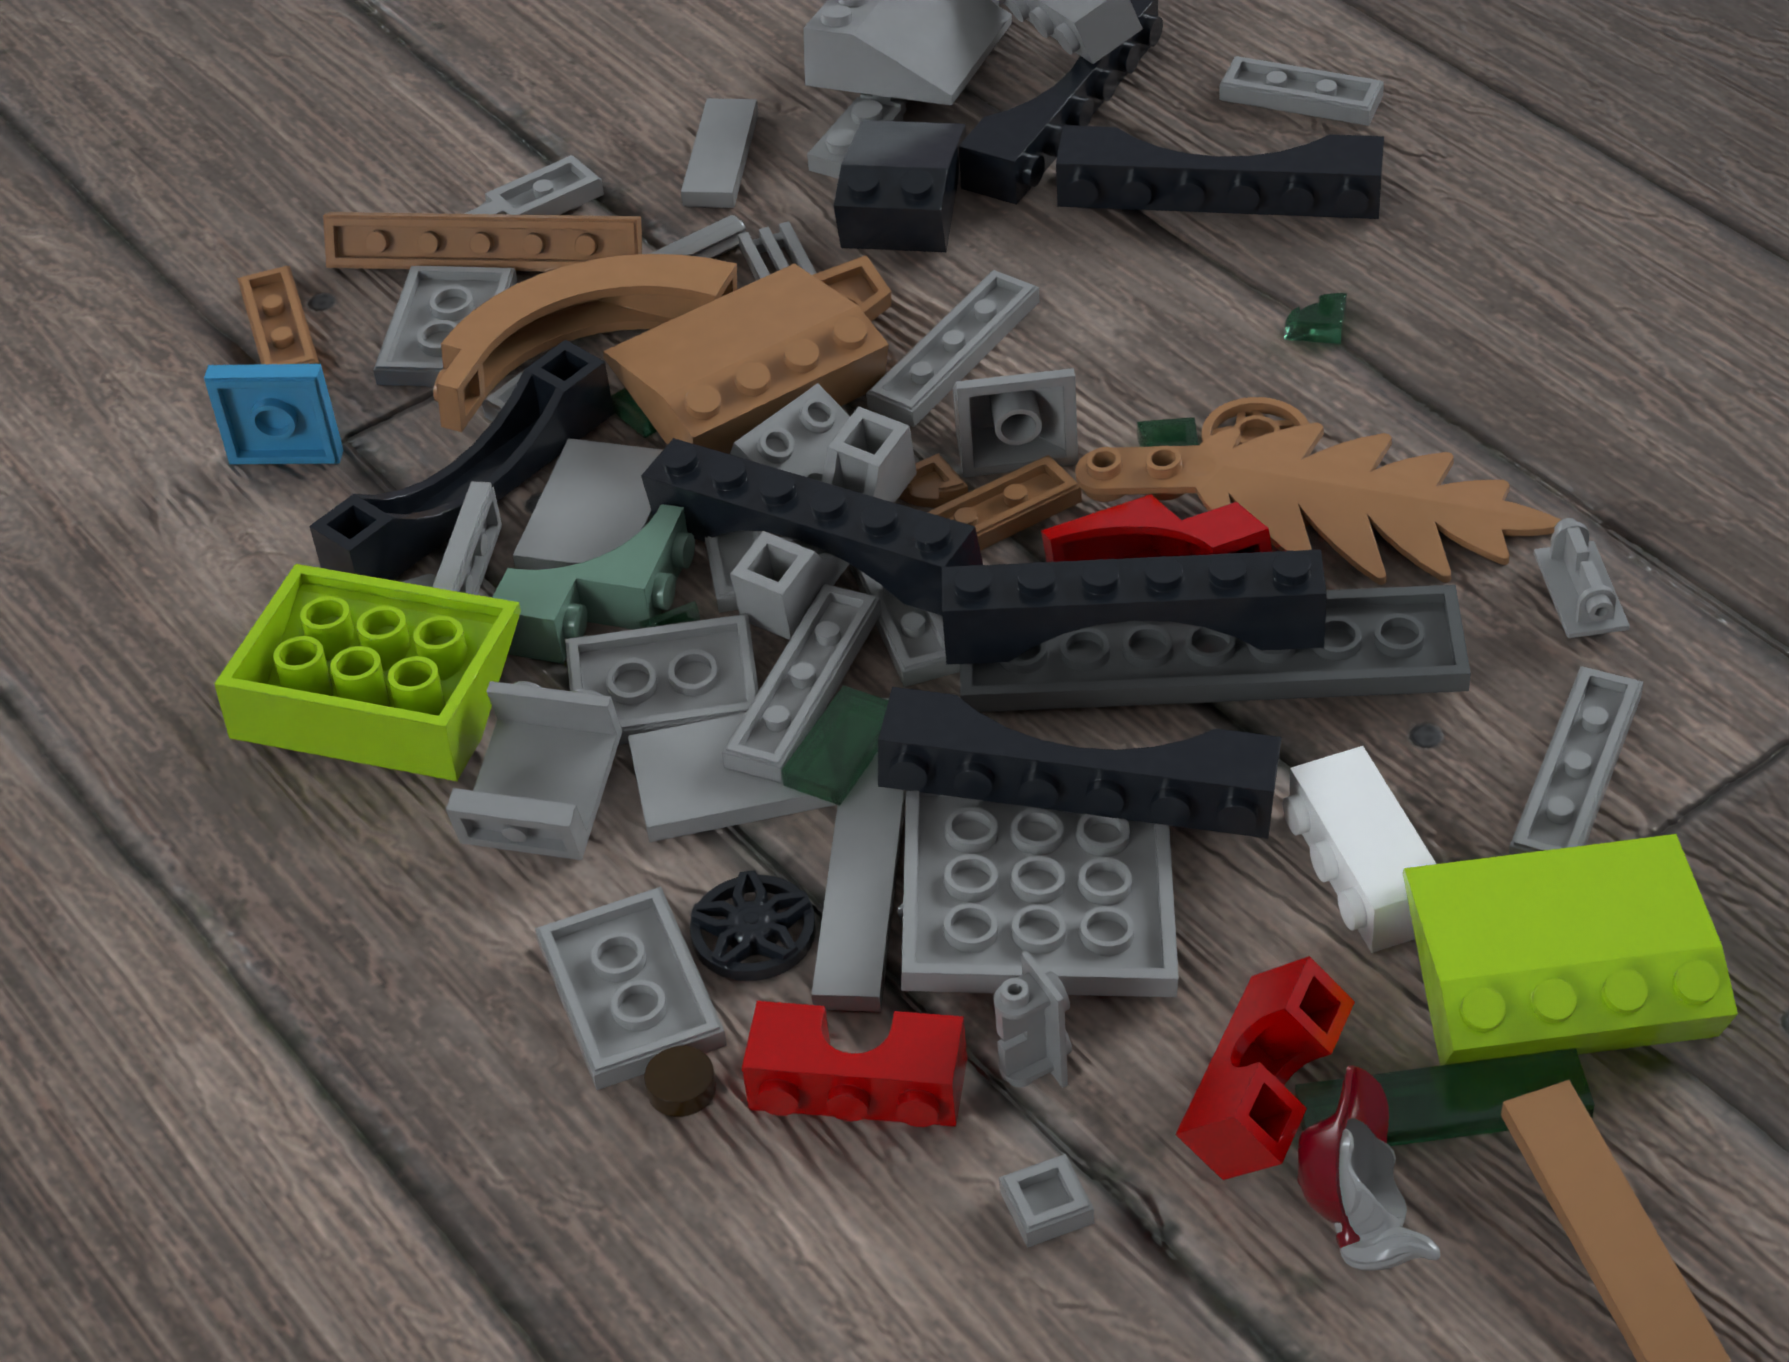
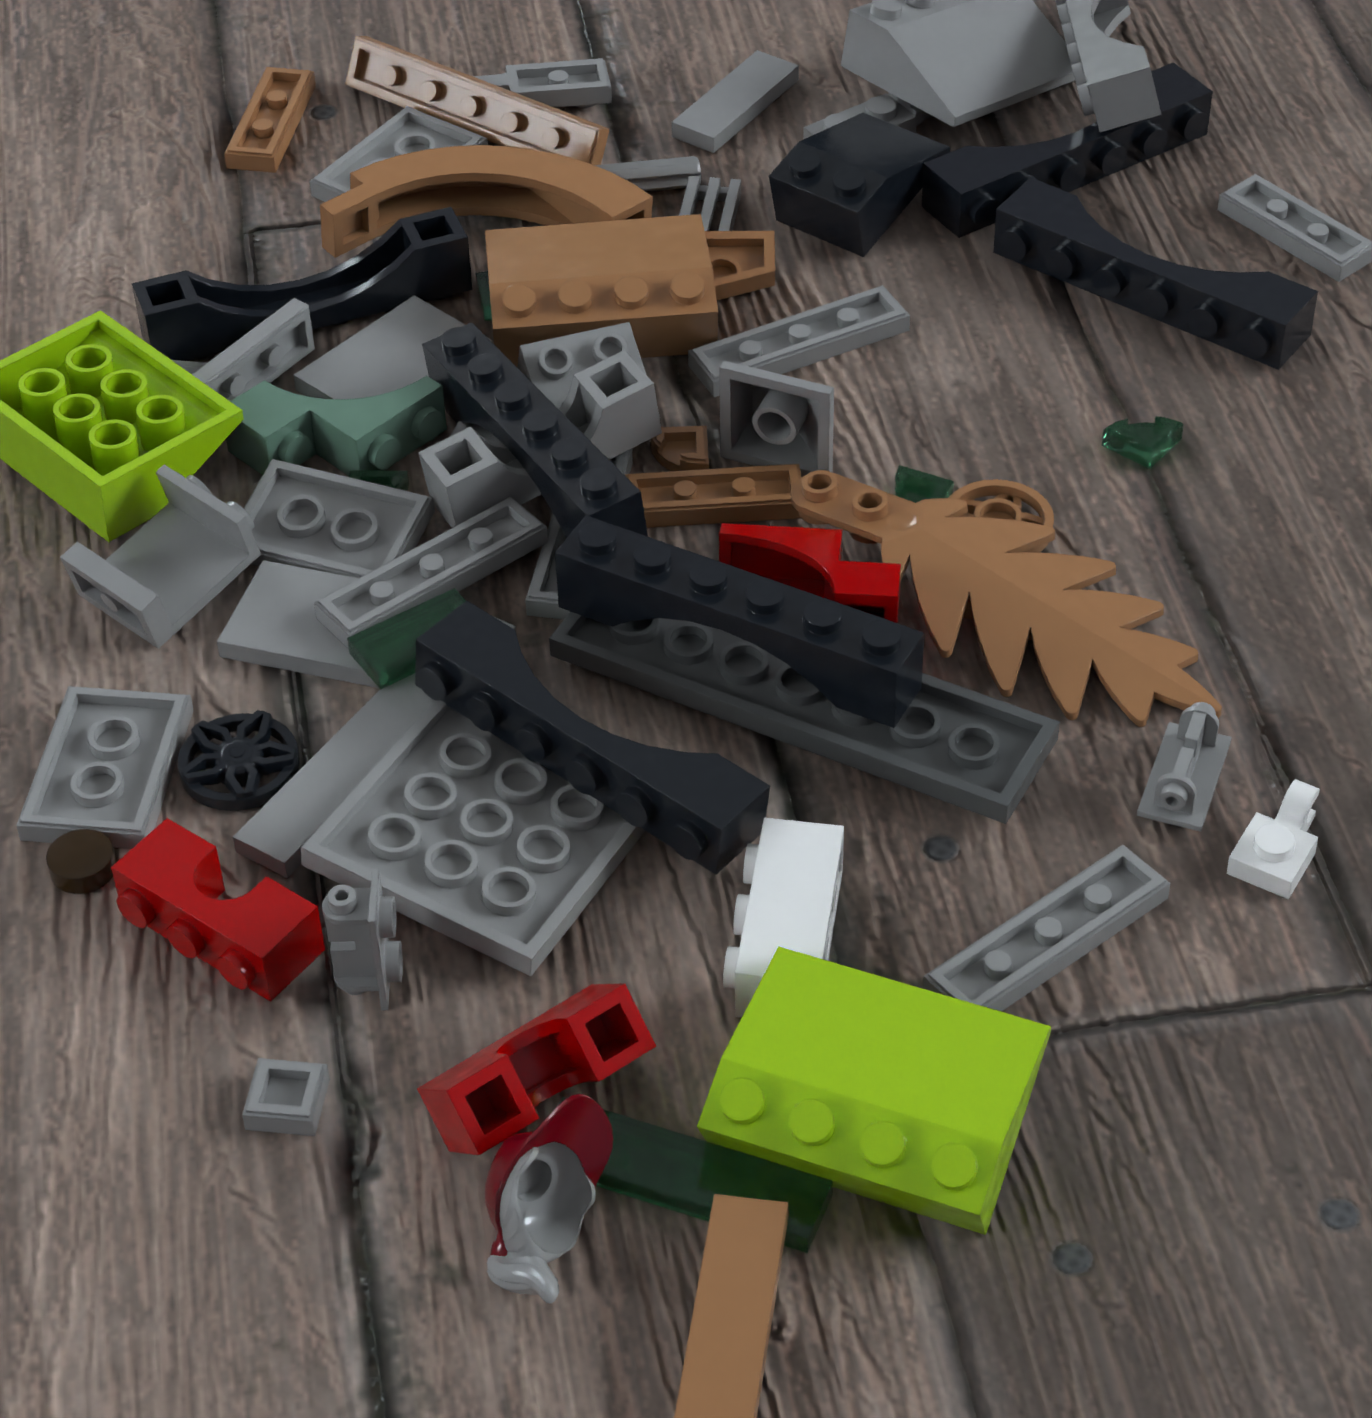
camera: 25 degrees right, 0 degrees up
(274, 413) = (189, 184): dark azure tile -> none
(1695, 618) = (1278, 849): none -> white plate

